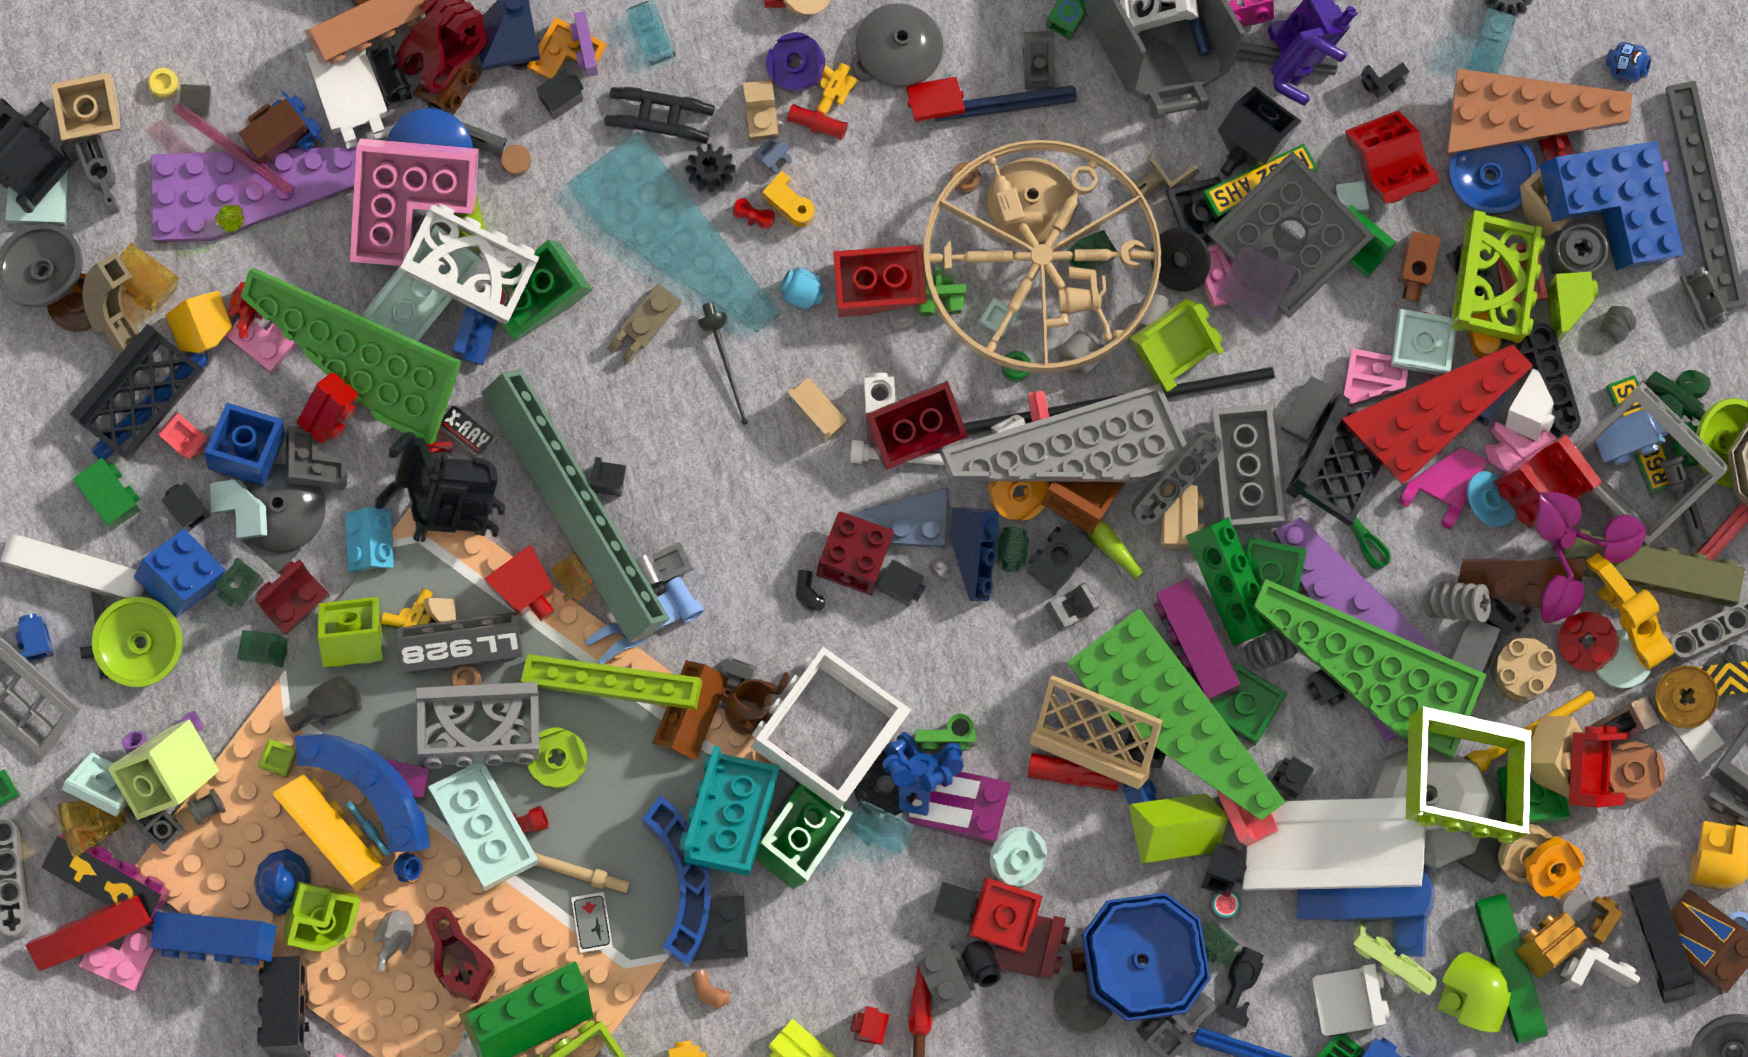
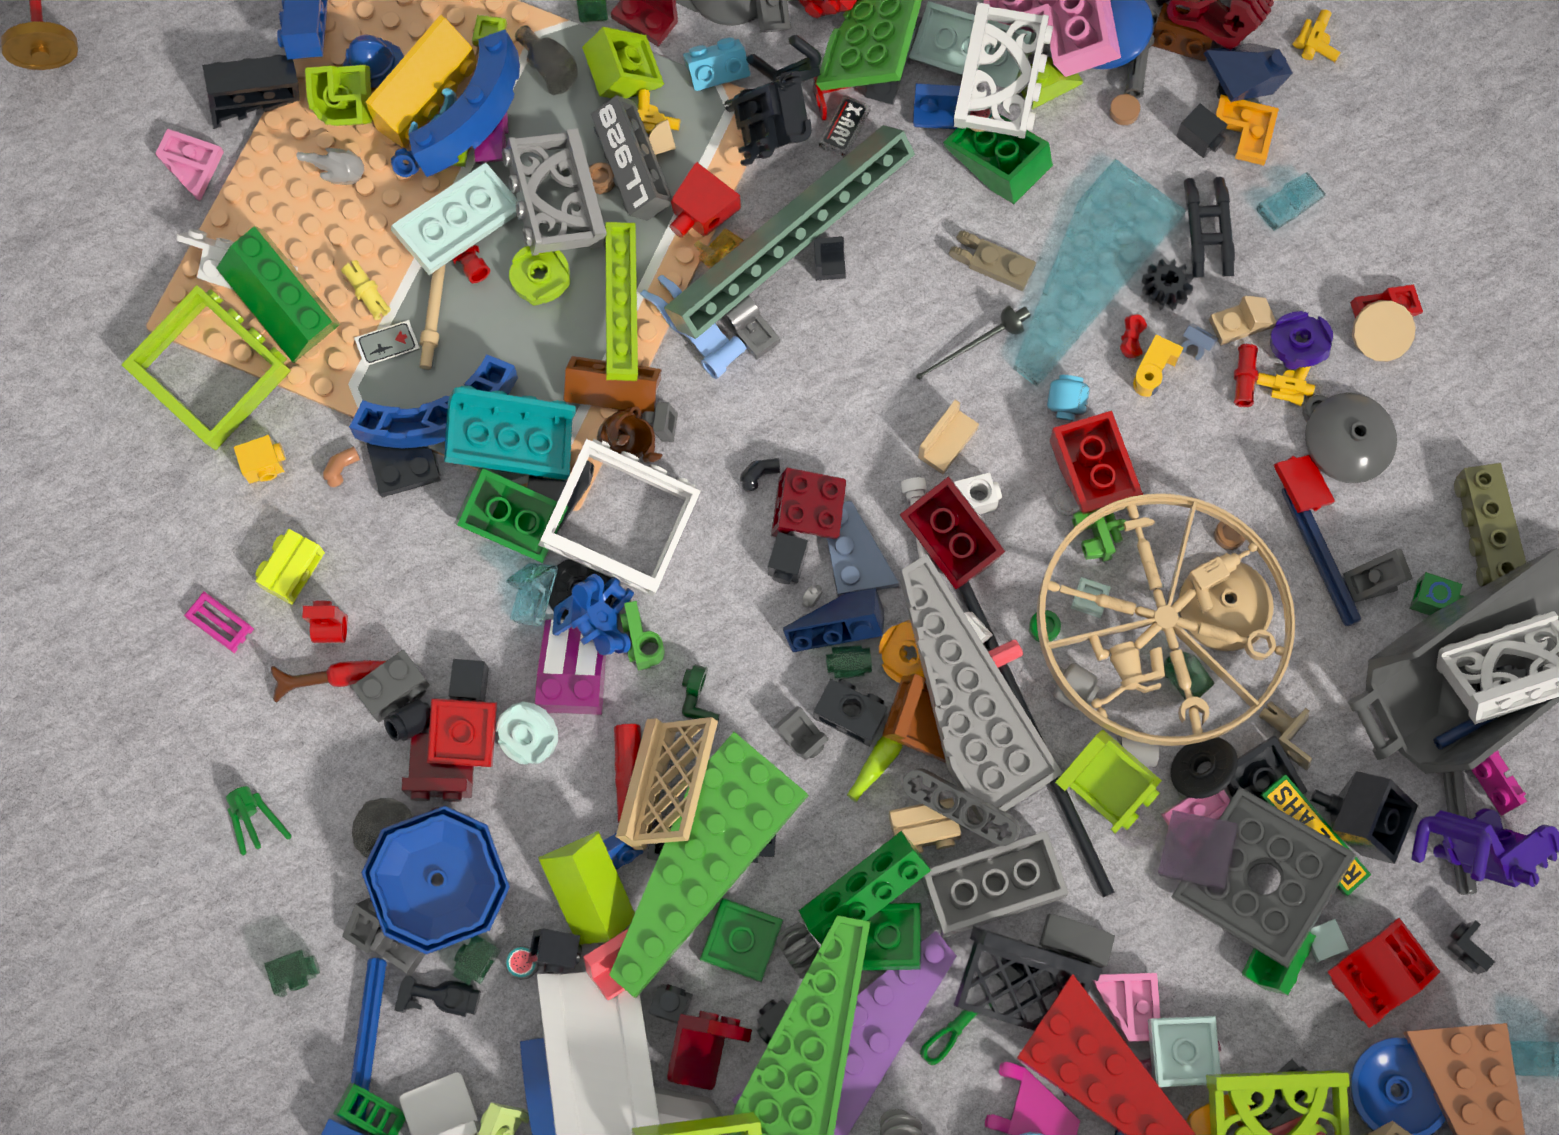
camera: 85 degrees right, 5 degrees down
(454, 942) = (322, 242): dark red piece -> none
(535, 930) = (366, 290): none -> light yellow pin
(586, 56) = (1264, 133): medium lavender plate -> none
(1002, 694) = (694, 682): none -> dark green plate
(1197, 641) = (793, 871): magenta brick -> none
(1335, 757) = (700, 1046): none -> dark red bracket
(1422, 251) = (1286, 1024): dark orange torso -> none

